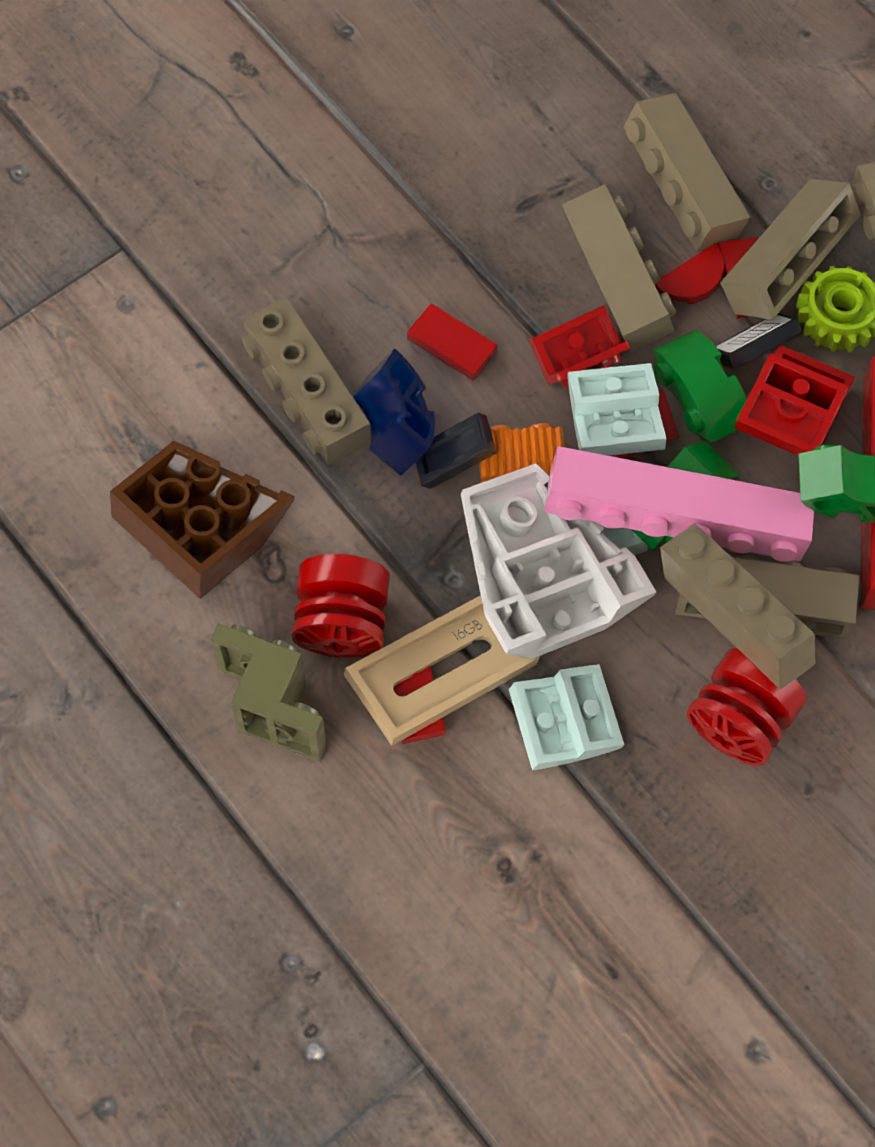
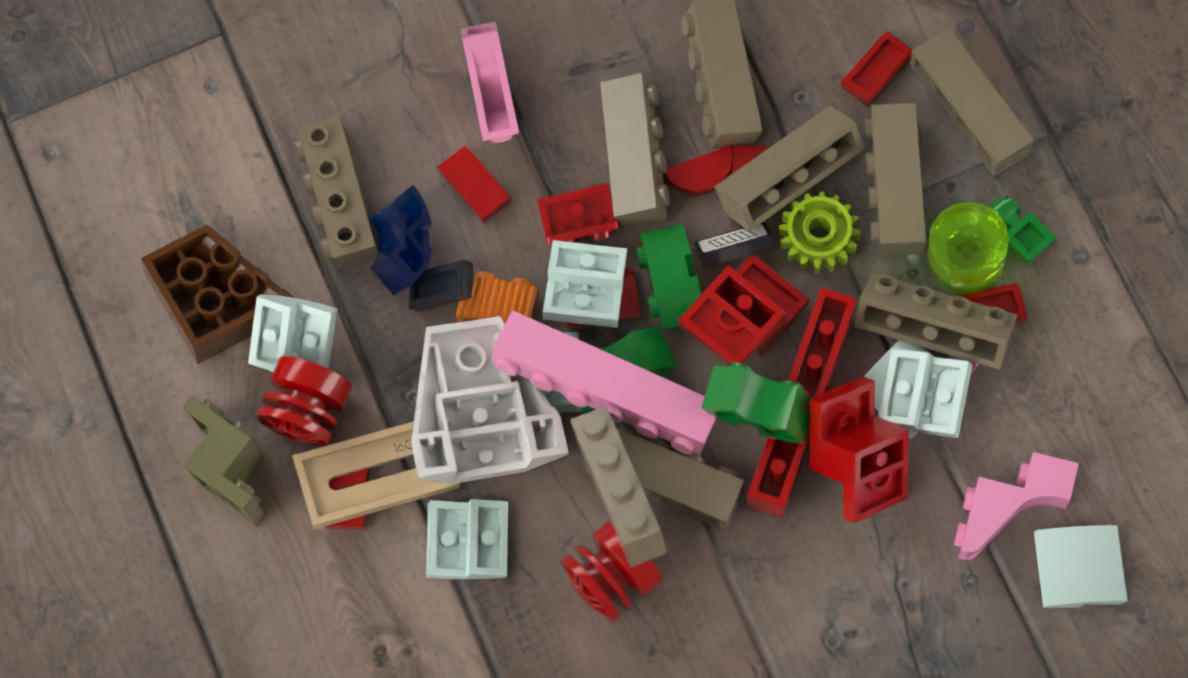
camera: 25 degrees right, 5 degrees up
(299, 529) = (291, 329): none -> light aqua slope
(448, 242) = (489, 82): none -> bright pink arch
(840, 138) = (877, 69): none -> red tile

